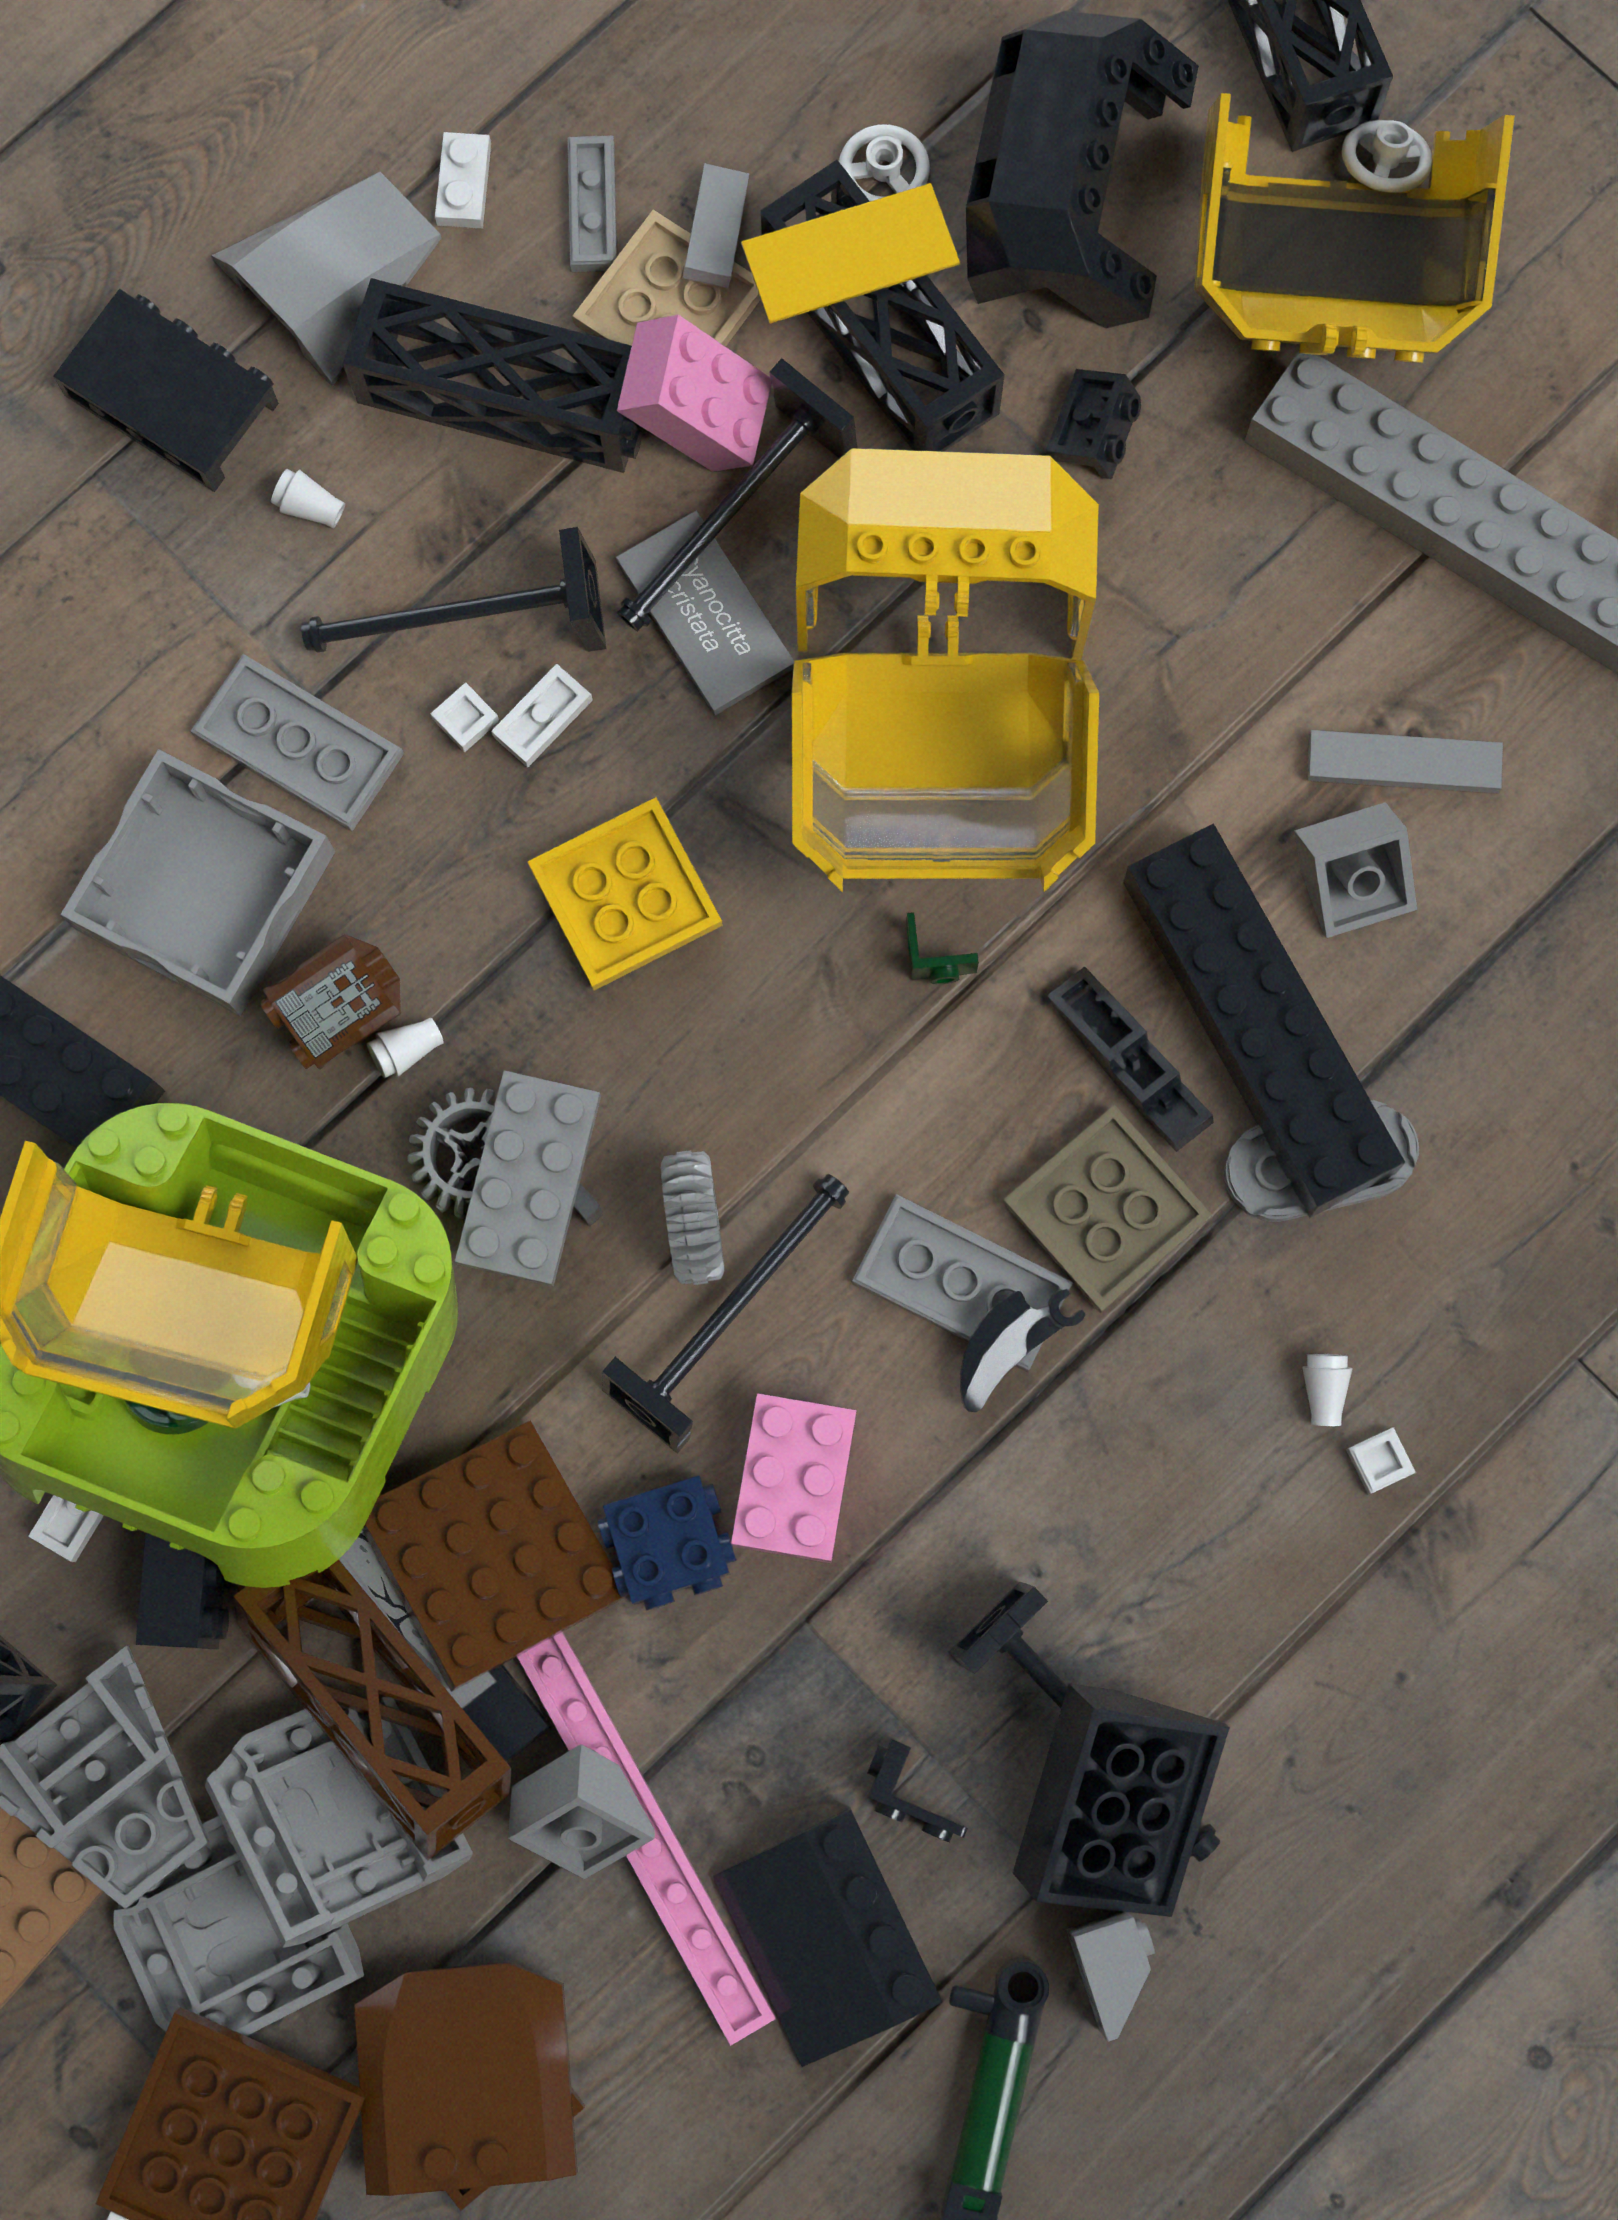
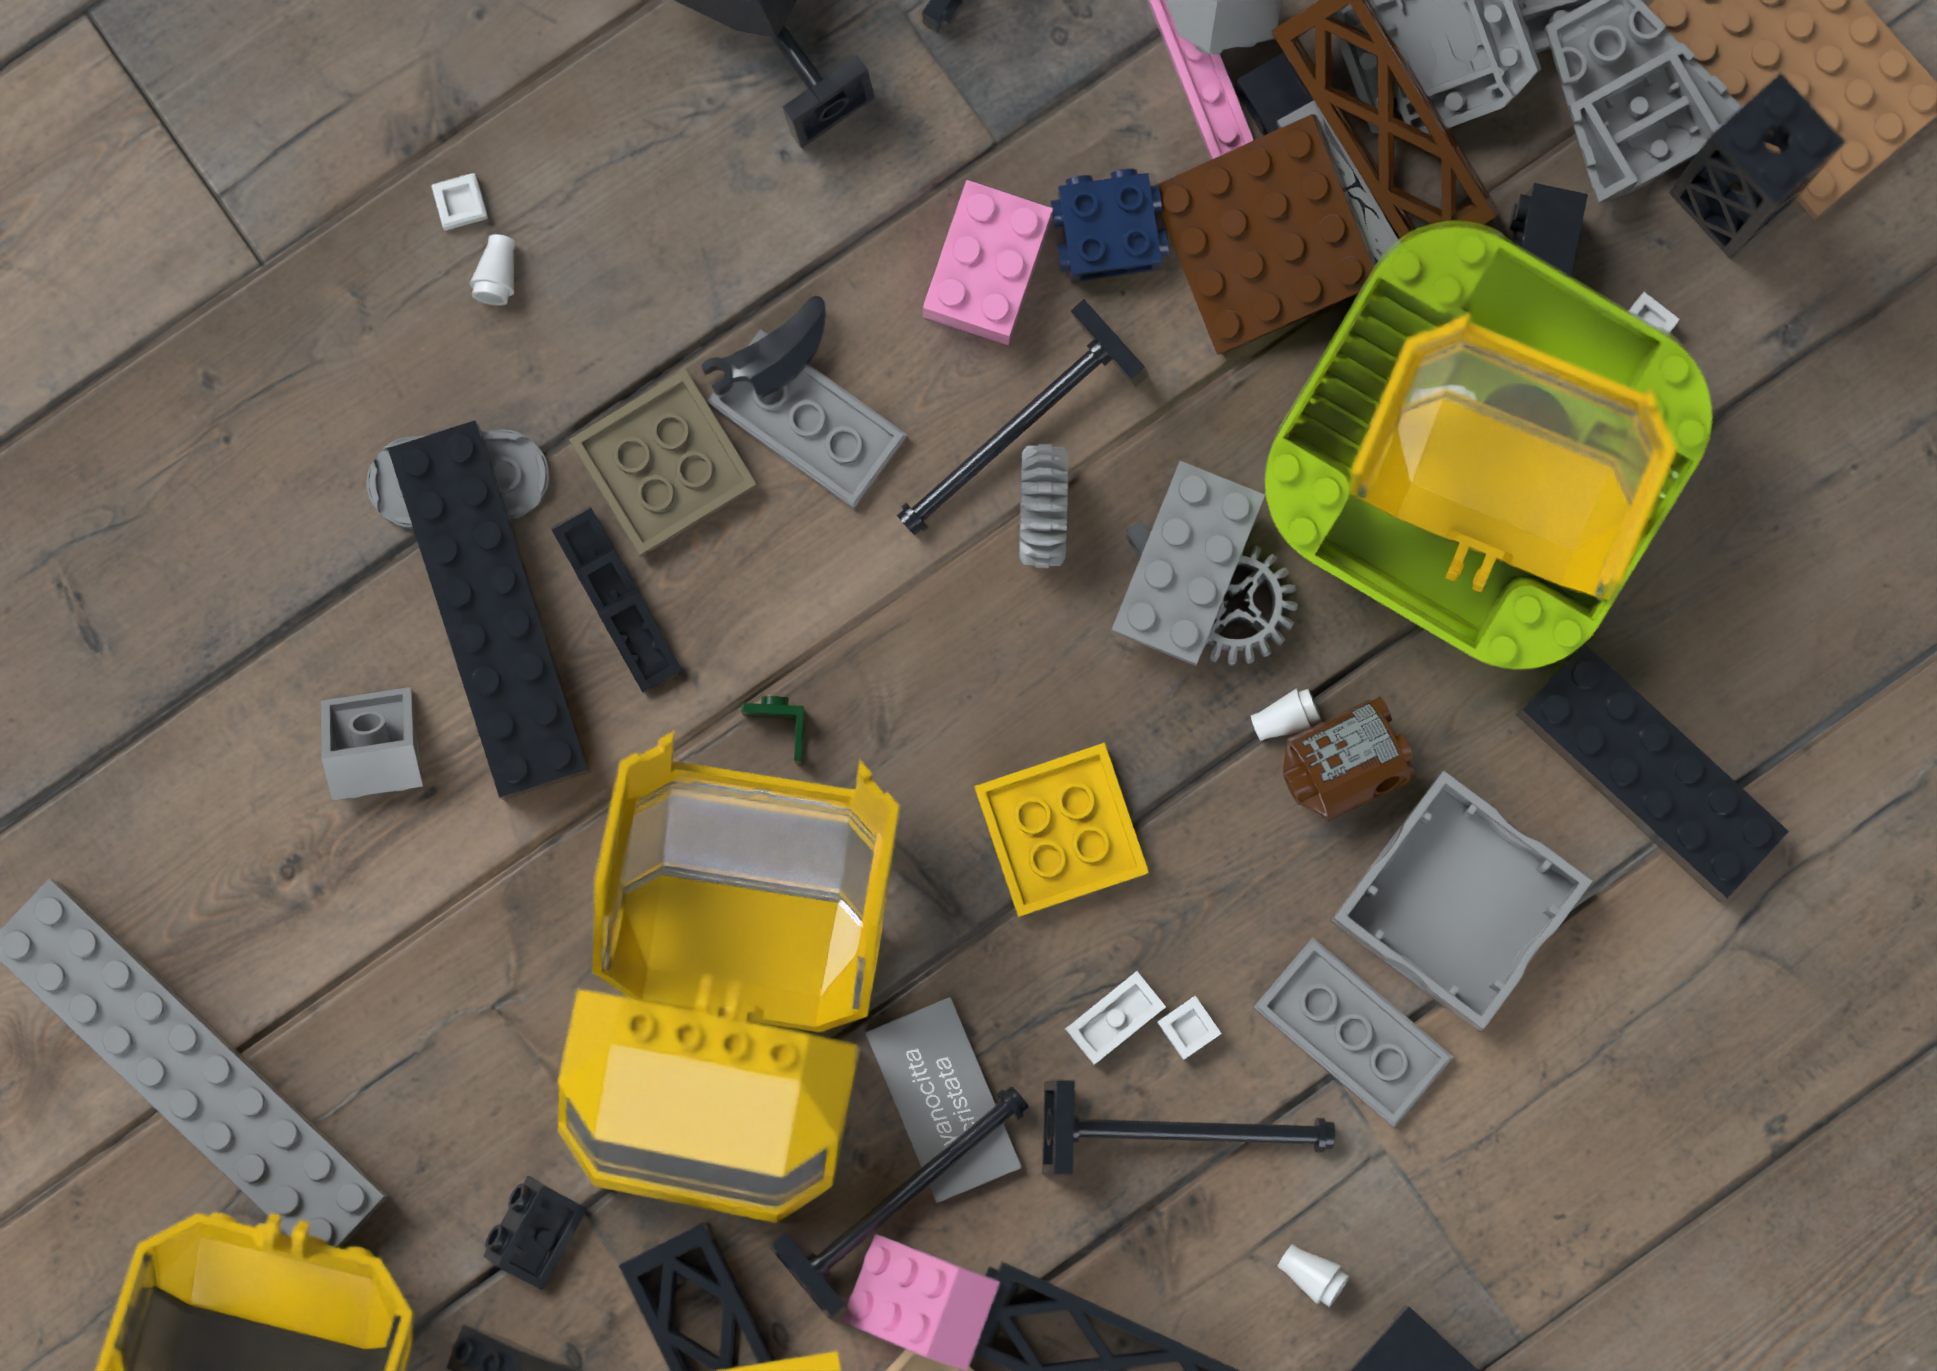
camera: 175 degrees left, 5 degrees up
(1405, 761) = (302, 844): light grey tile -> none

